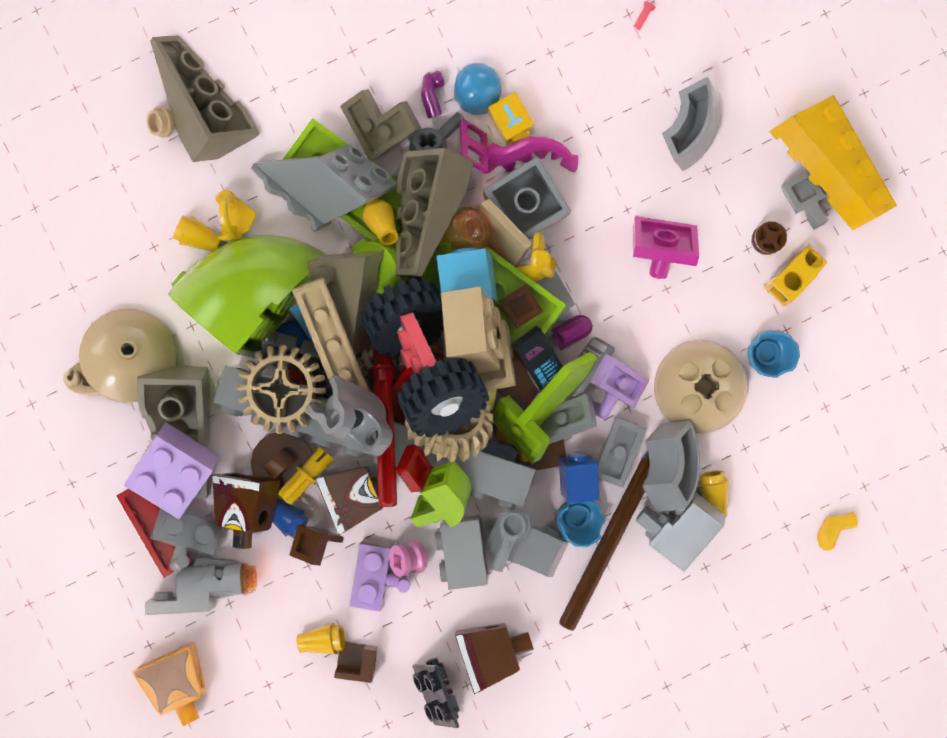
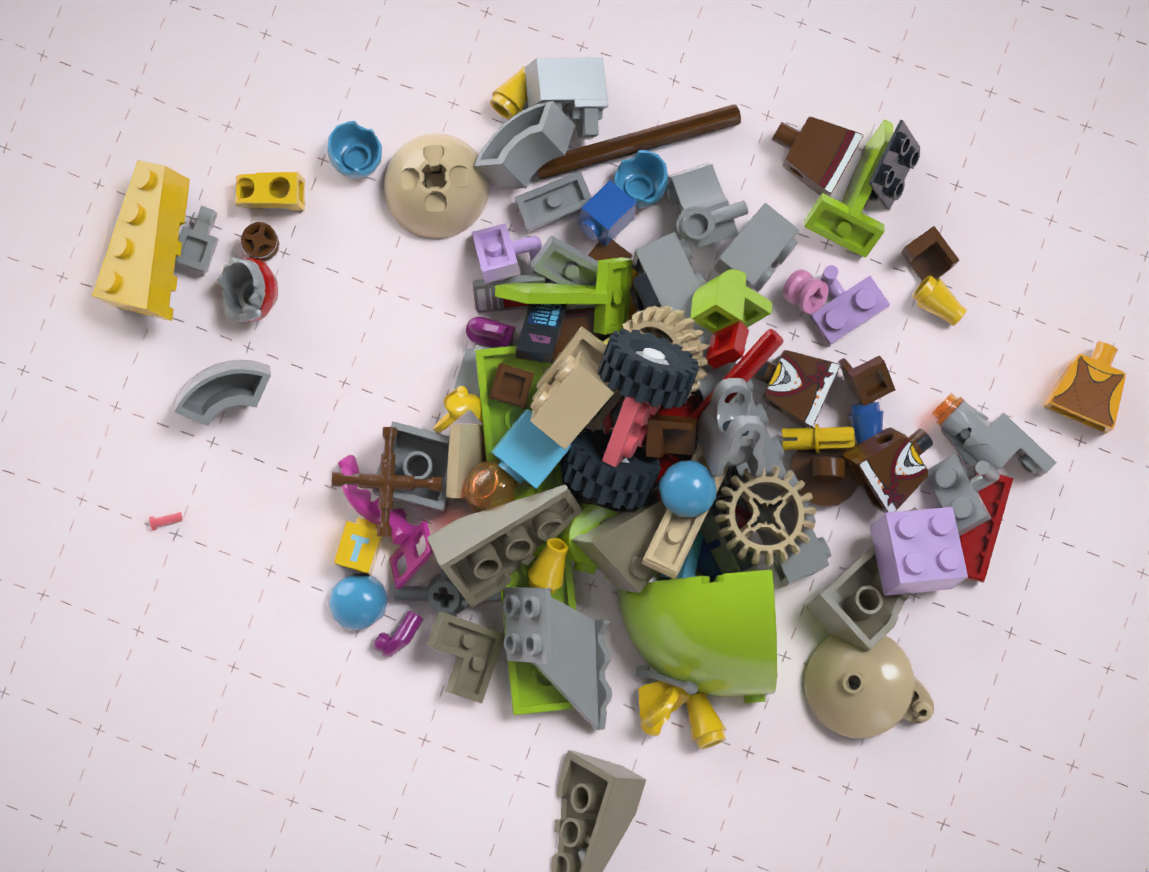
camera: 135 degrees left, 5 degrees down
(160, 121) = (637, 843): tan plate -> none
(264, 227) = (644, 671): none -> light grey hinge
(343, 352) = (687, 489): none -> dark azure hair
(390, 376) = (671, 435): none -> reddish brown panel
(429, 628) = (843, 220): none -> lime piece
(534, 169) = (386, 481): none -> reddish brown piece
(665, 244) = (345, 321): dark pink tile -> none
(744, 200) = (247, 289): none -> light grey hair

